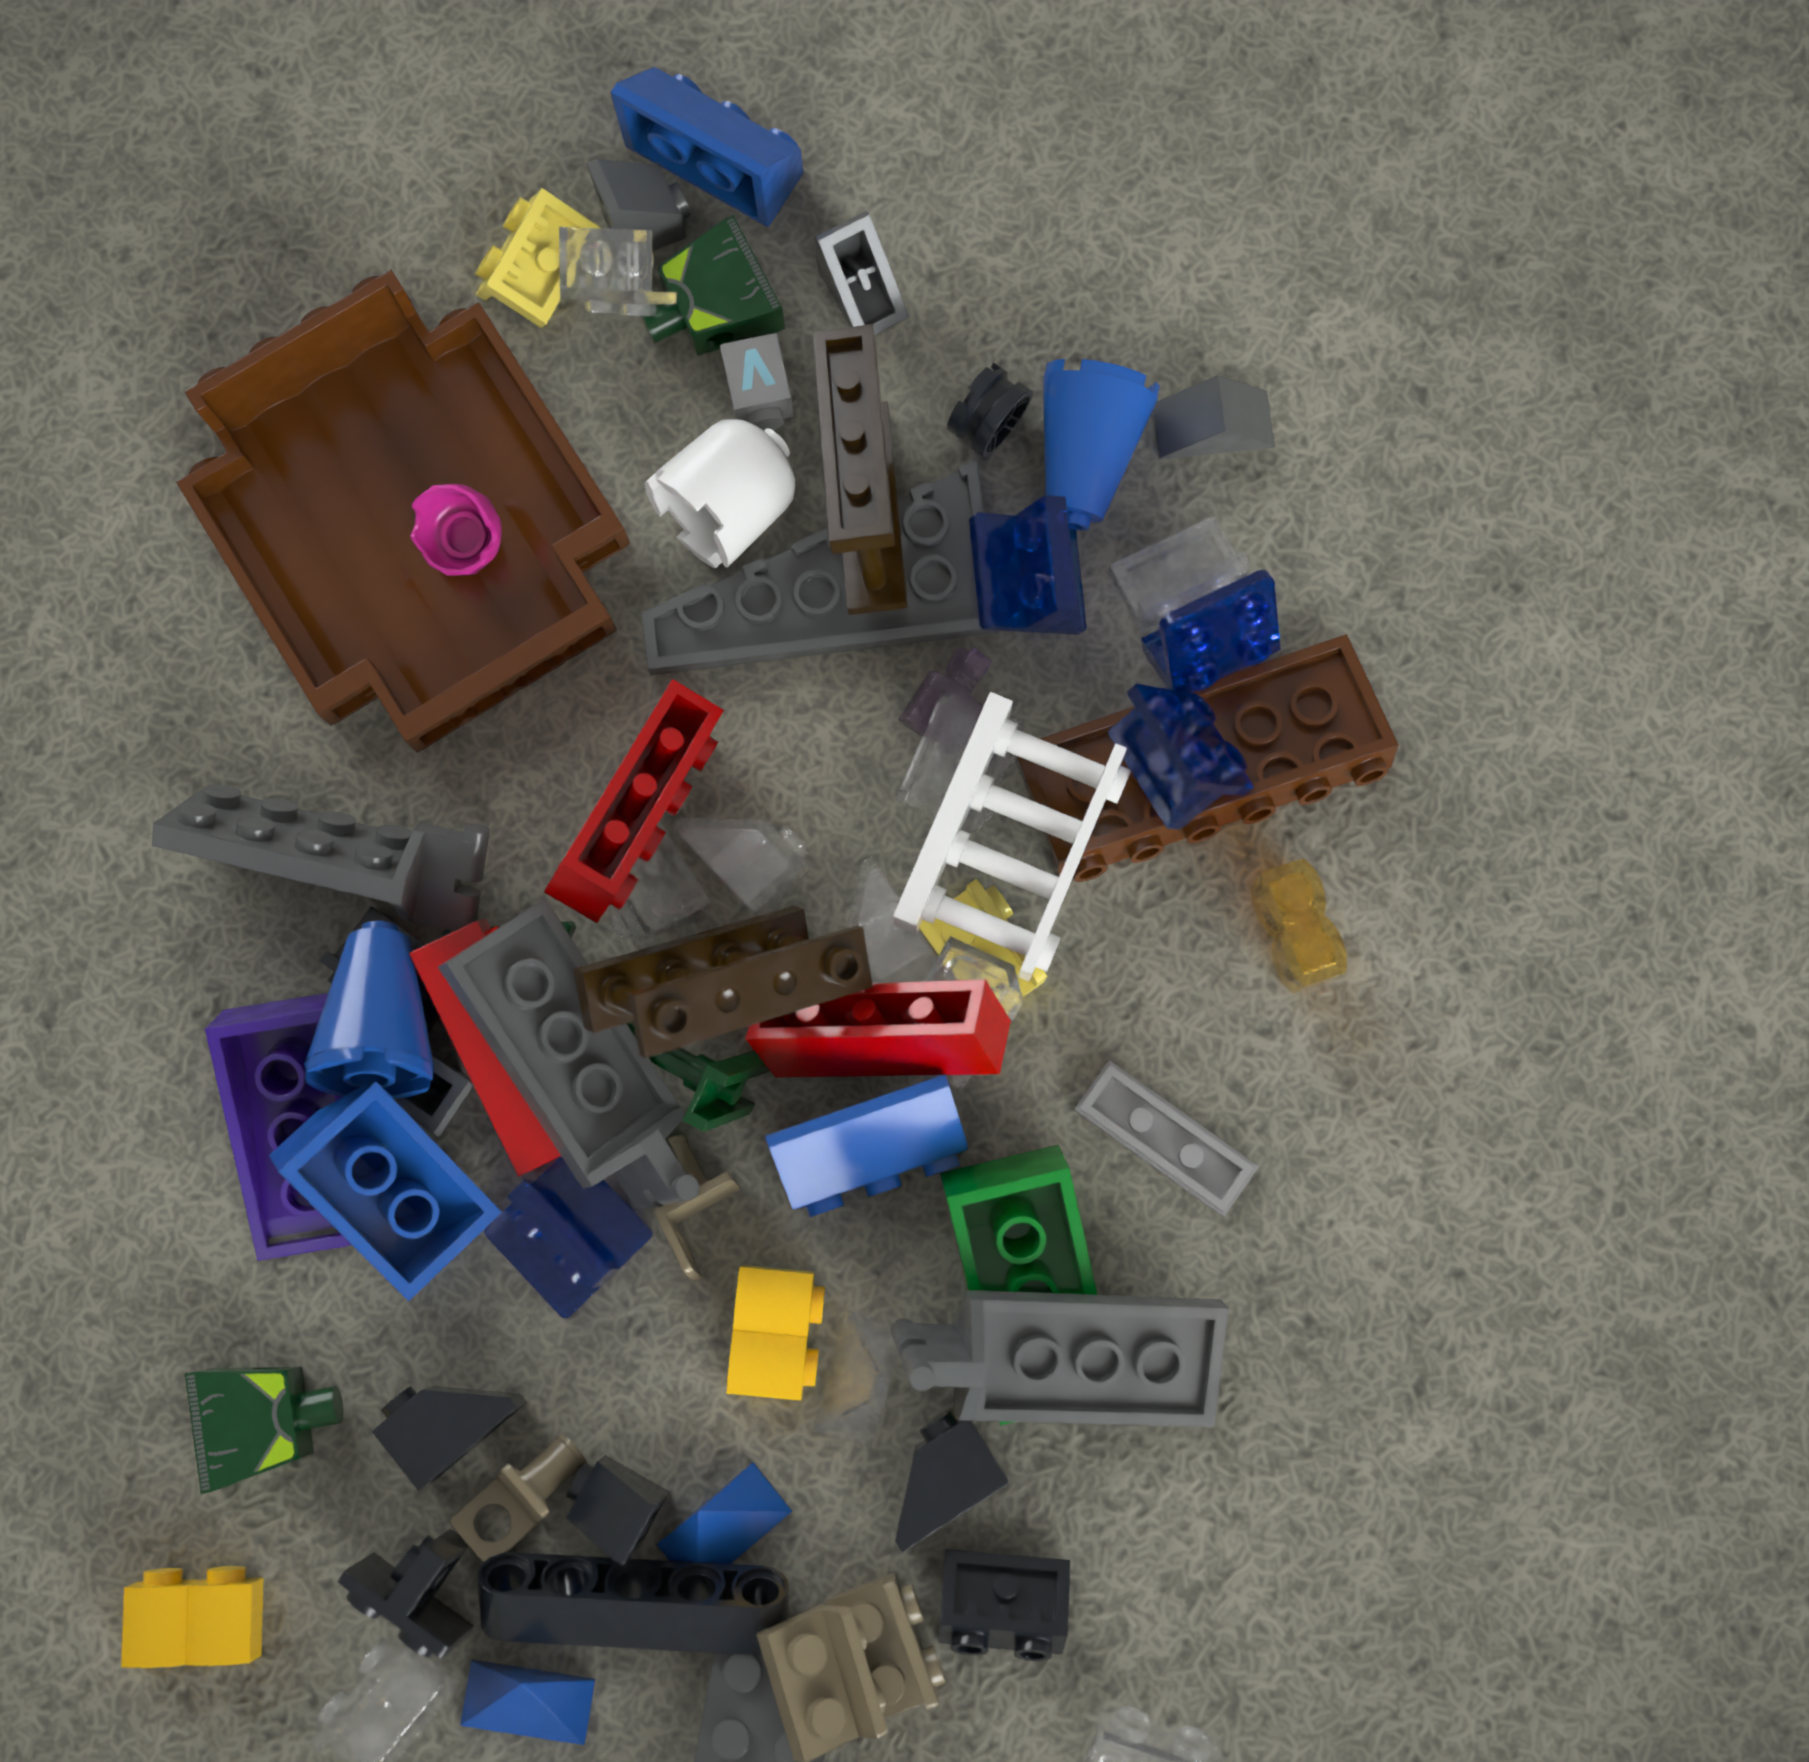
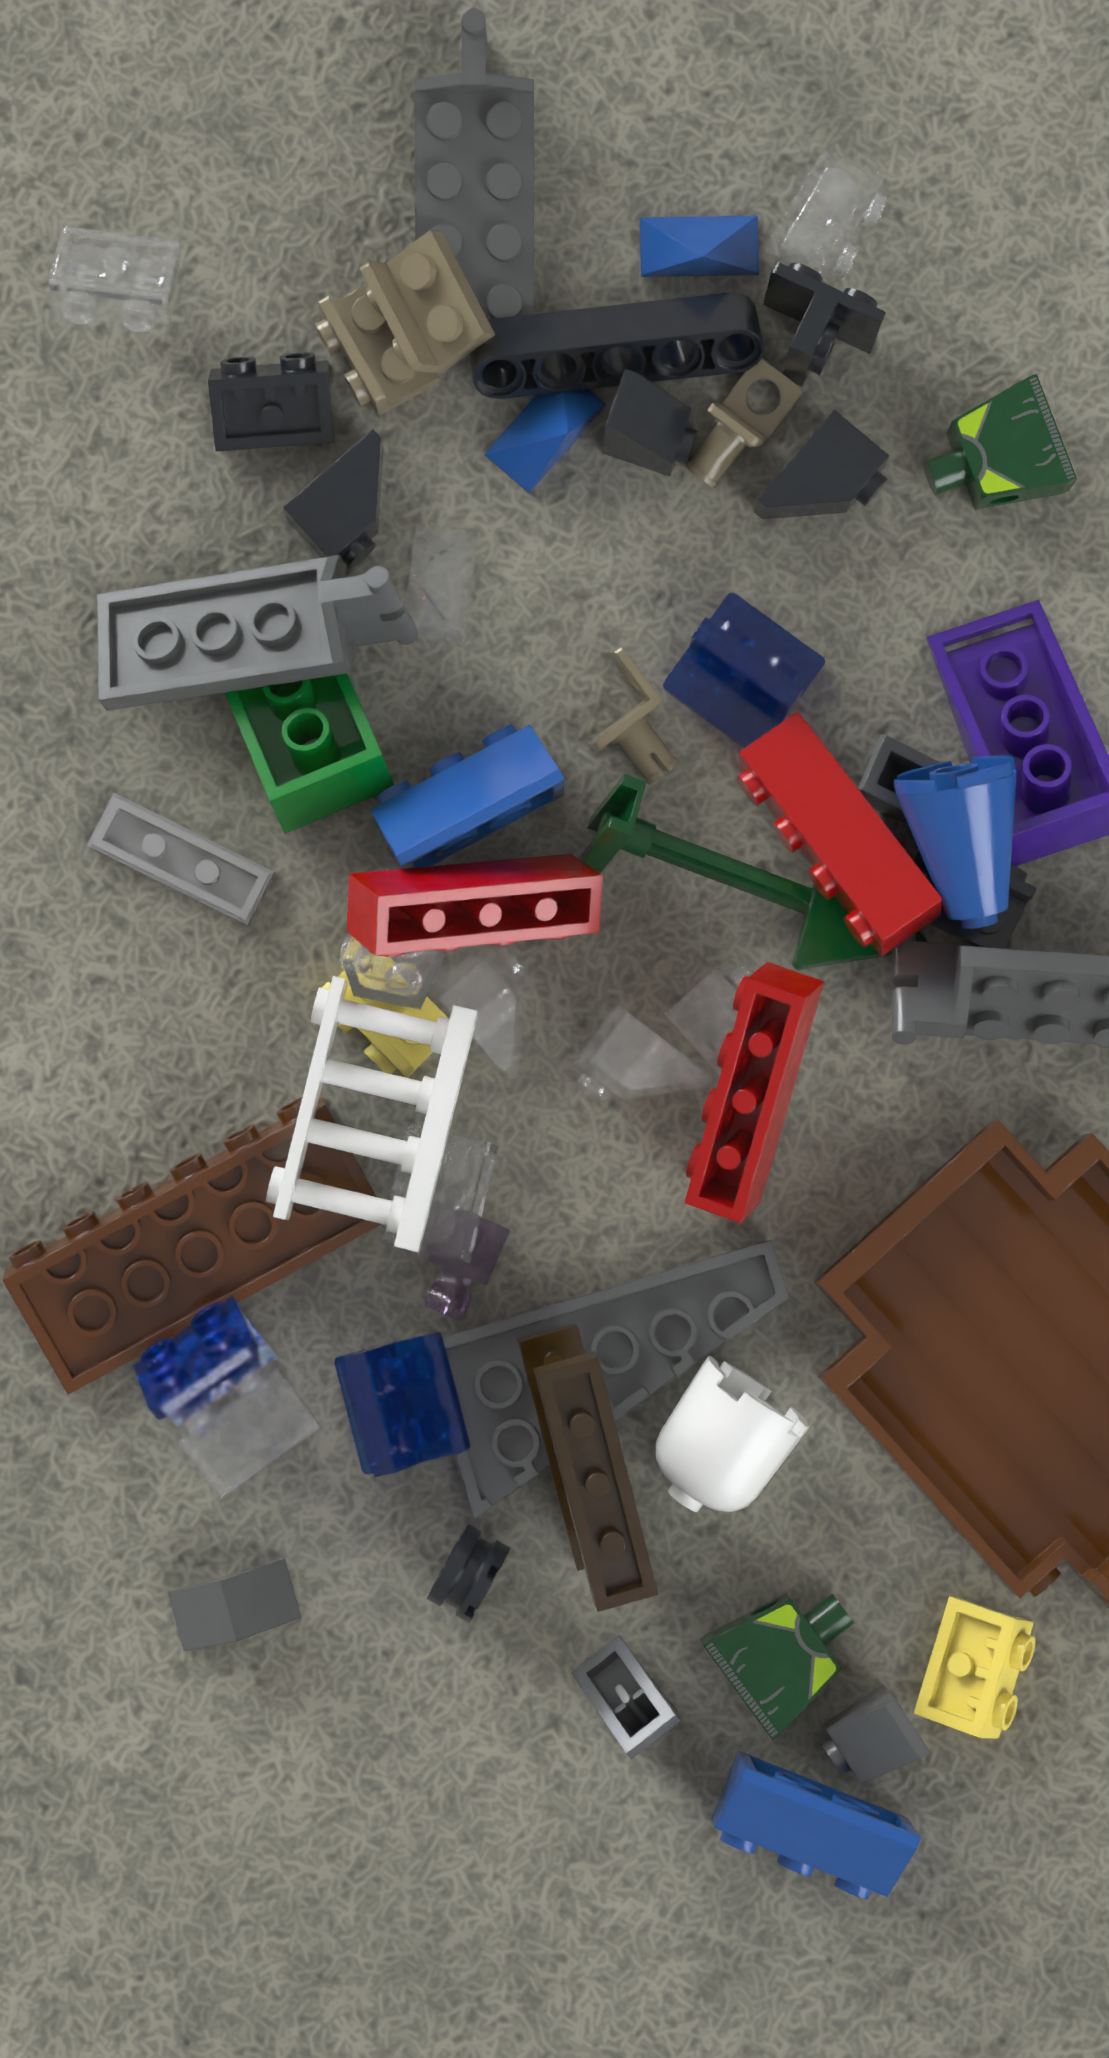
camera: 165 degrees right, 5 degrees up
(192, 1620) = (1022, 265): yellow brick -> none
(385, 1186) = (923, 677): blue slope -> none
(456, 529) = (991, 1347): dark pink hair -> none
(585, 1087) = (765, 829): dark grey hinge -> none
(609, 269) = (888, 1651): clear bracket -> none
(721, 980) = (647, 947): dark brown fence -> none
(758, 381) = (715, 1564): light grey brick -> none
(772, 1332) = (530, 611): yellow brick -> none
(1091, 433) = (359, 1555): blue cone -> none
(1178, 753) = (220, 1230): clear blue bracket -> none
(1292, 910) = (72, 1068): clear yellow brick -> none

